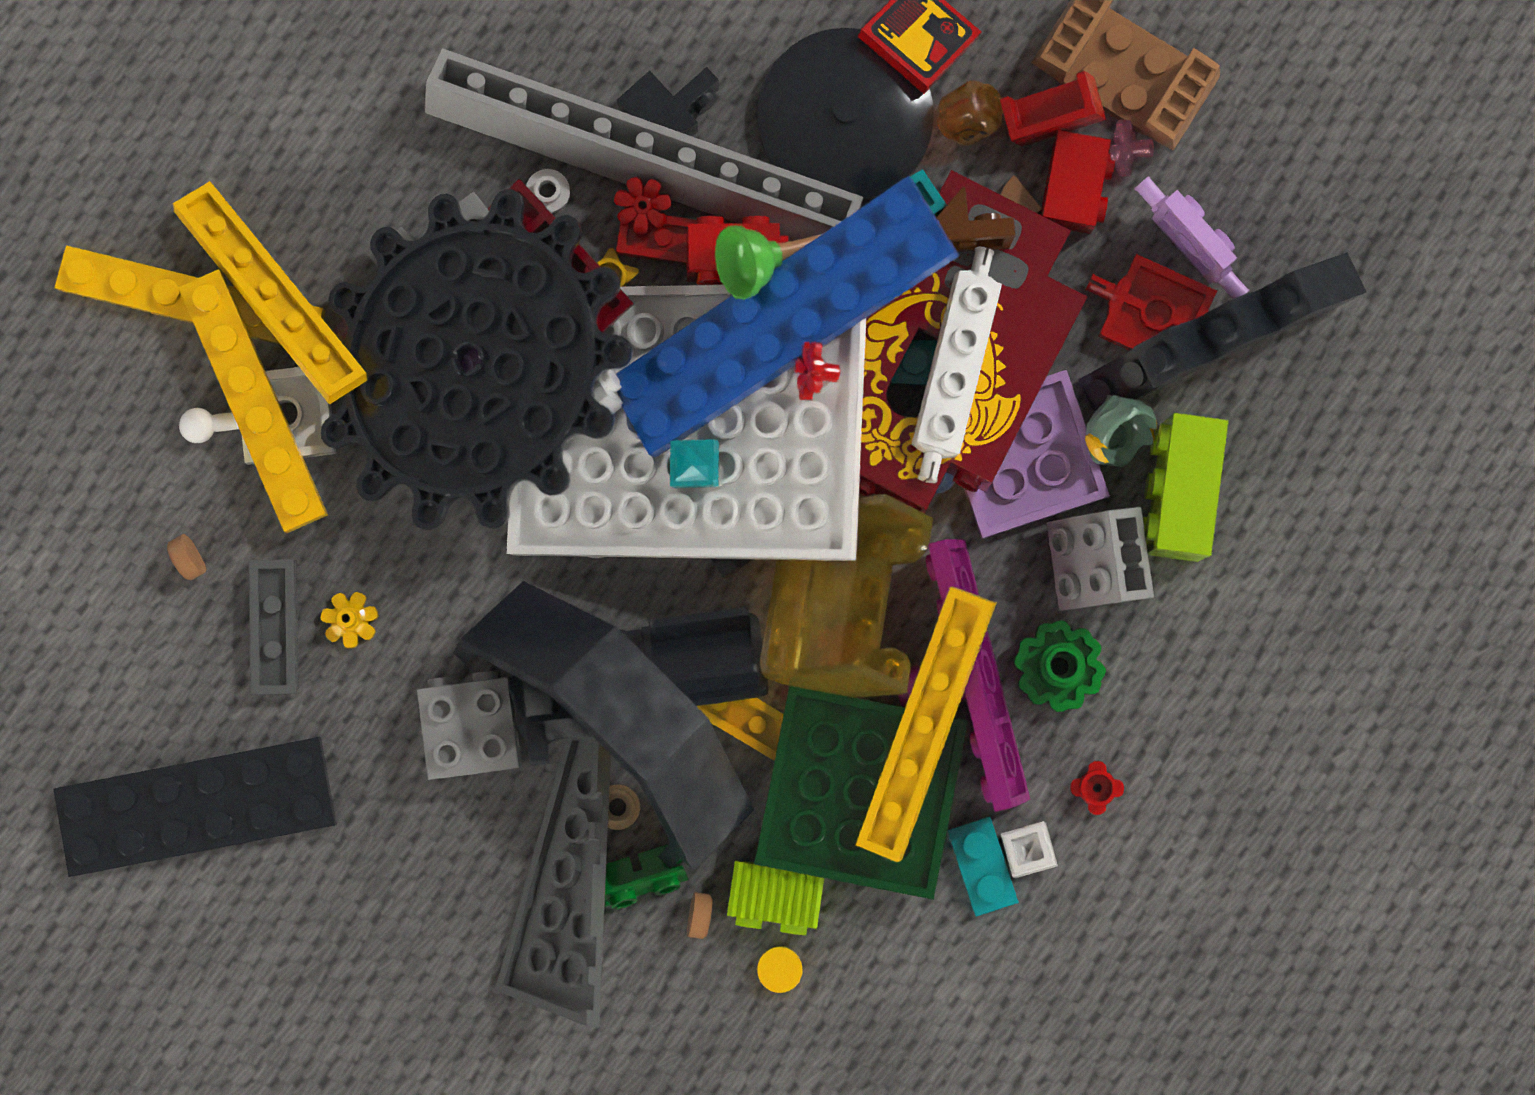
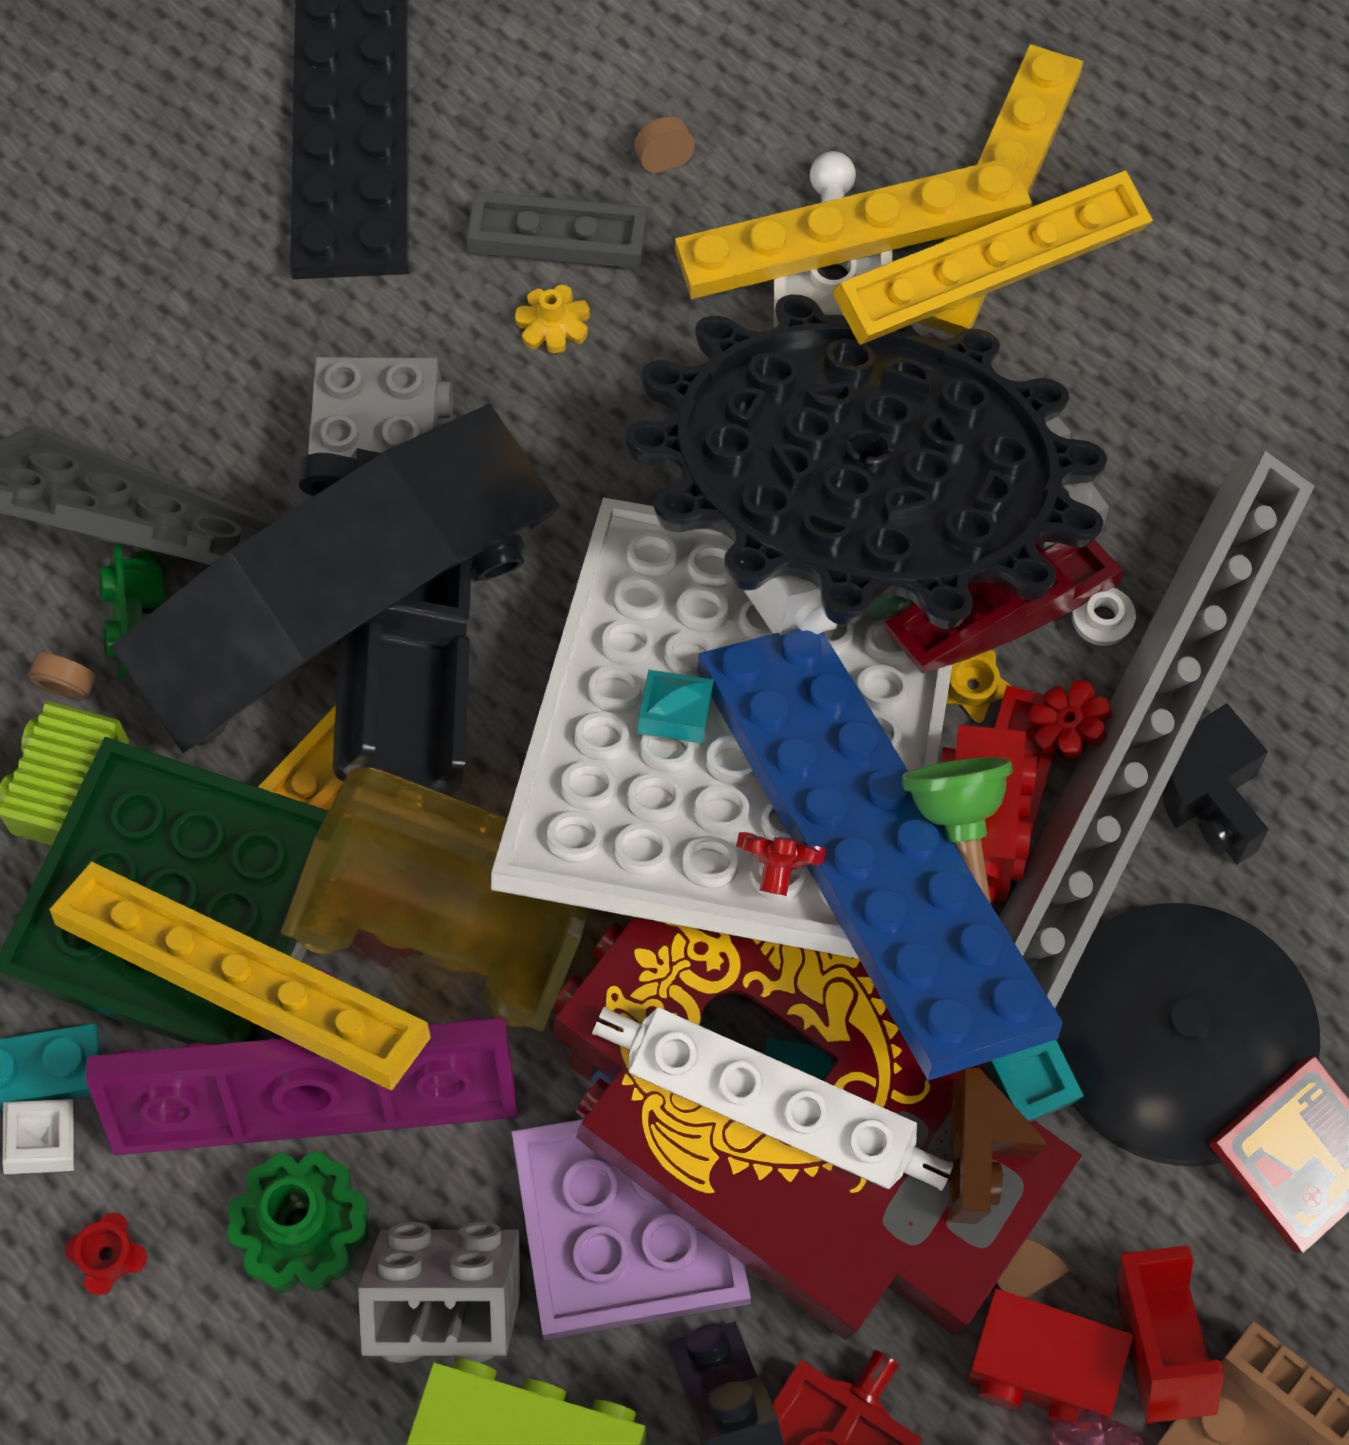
camera: 100 degrees right, 20 degrees down
(970, 112) = (1173, 1205): clear orange head -> none
(1119, 430) = (637, 1353): sand green hair -> none

